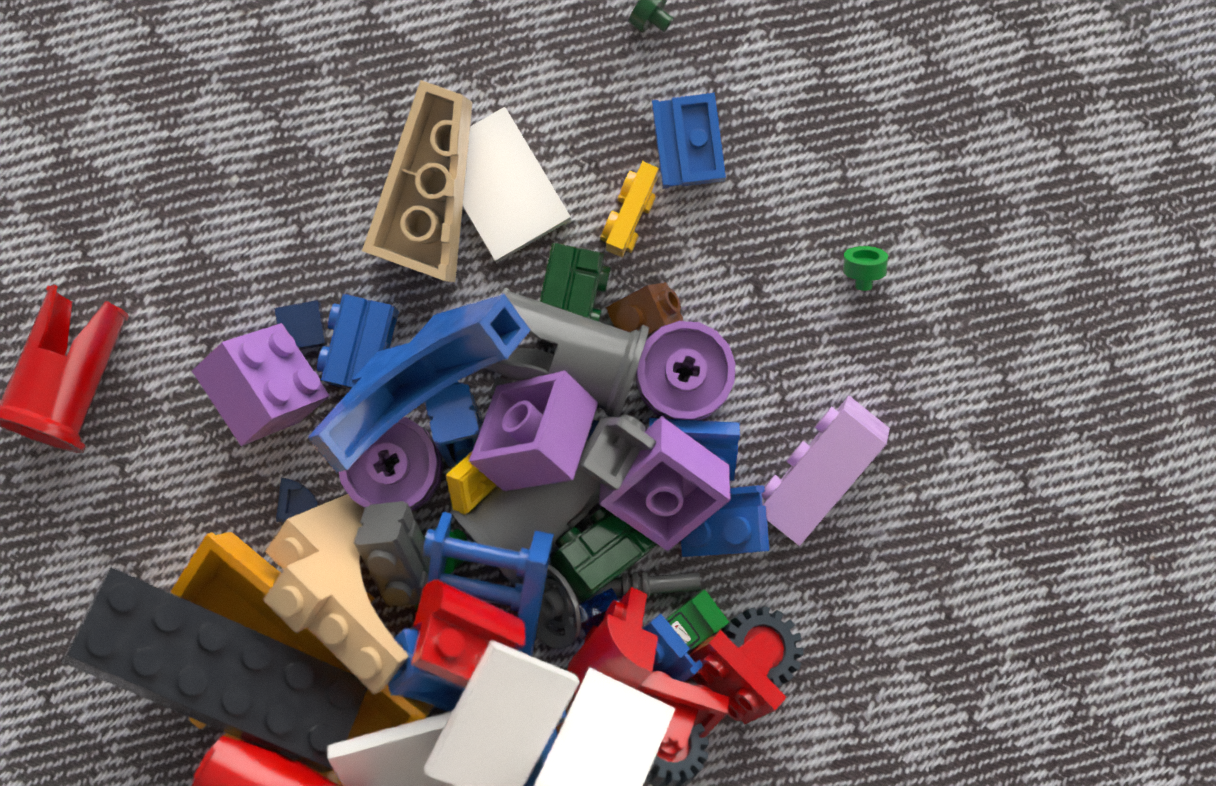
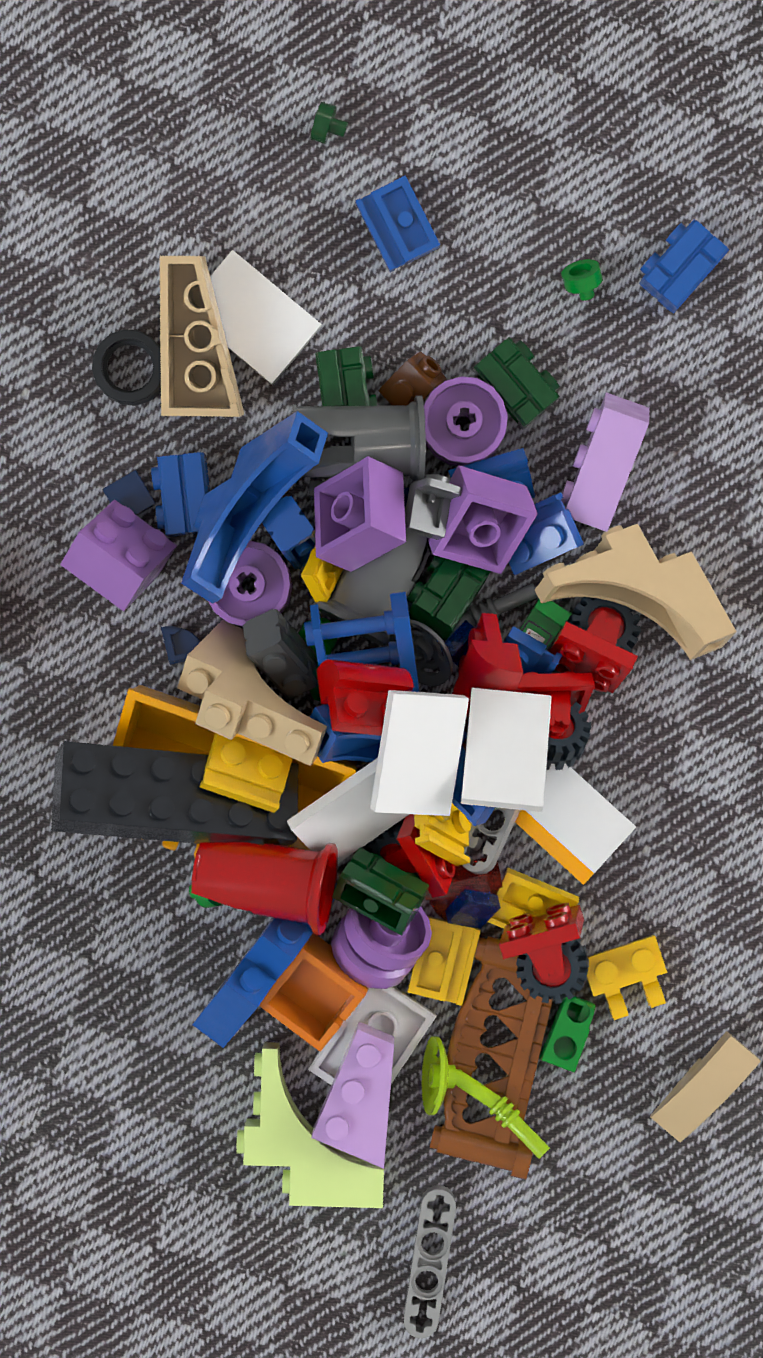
camera: 20 degrees left, 5 degrees up
(303, 674) = (246, 772): none -> yellow plate
(321, 176) = (100, 367): none -> black tyre
(637, 198) = (371, 284): yellow plate -> none
(758, 350) = (517, 381): none -> dark green brick
(841, 633) = (664, 590): none -> tan arch
(978, 289) = (683, 265): none -> blue brick

